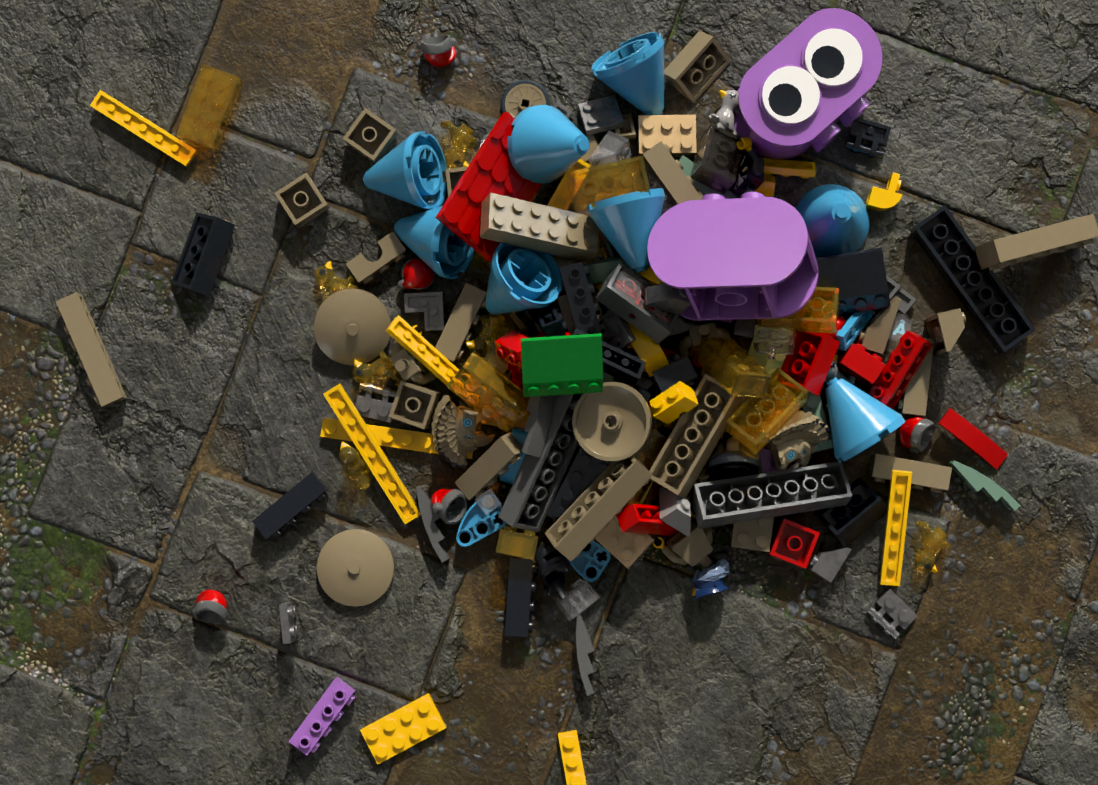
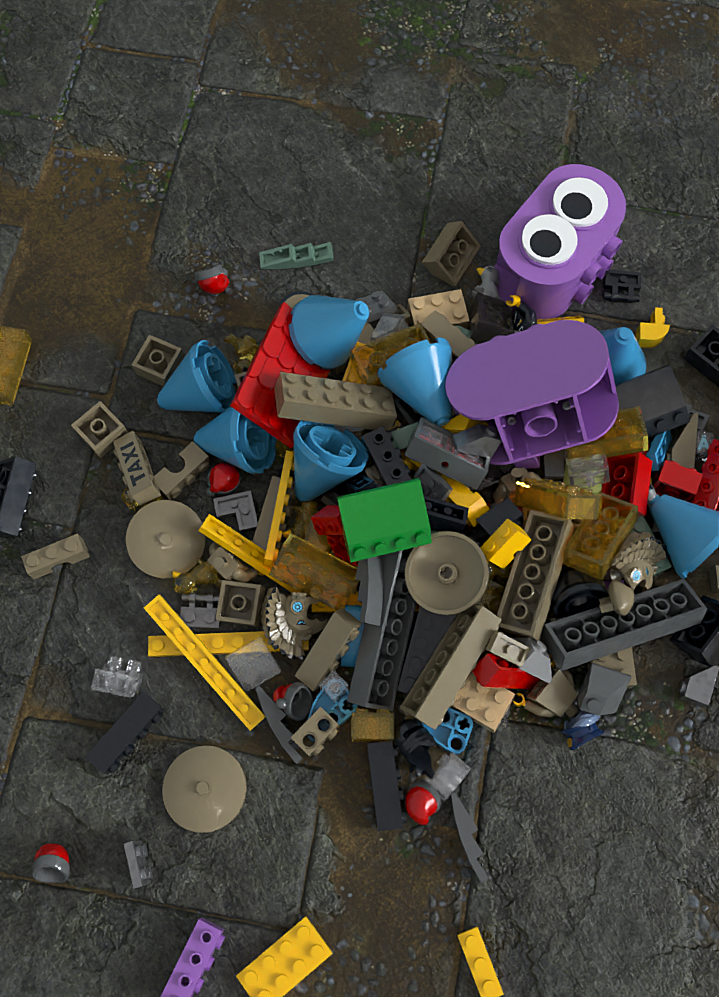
camera: 10 degrees left, 15 degrees down
(245, 322) = (42, 560): none -> dark tan arch
(293, 455) = (117, 680): none -> clear hips
(333, 250) = (136, 468): none -> dark tan brick
(355, 466) = (187, 677): clear yellow animal -> none
(417, 464) = (253, 664): none -> clear plate
(462, 535) = (310, 727): none -> dark tan brick
(465, 327) = (279, 516): none -> yellow plate
(532, 38) = (295, 257): none -> sand green slope
(549, 617) = (422, 802): none -> red piece
(636, 72) = (400, 264): dark azure cone -> none
(653, 502) = (508, 648): none -> plate
(735, 551) = (602, 690): none -> dark grey slope
(768, 475) = (620, 599): none -> dark tan piece
(793, 543) = (658, 672): red brick -> none

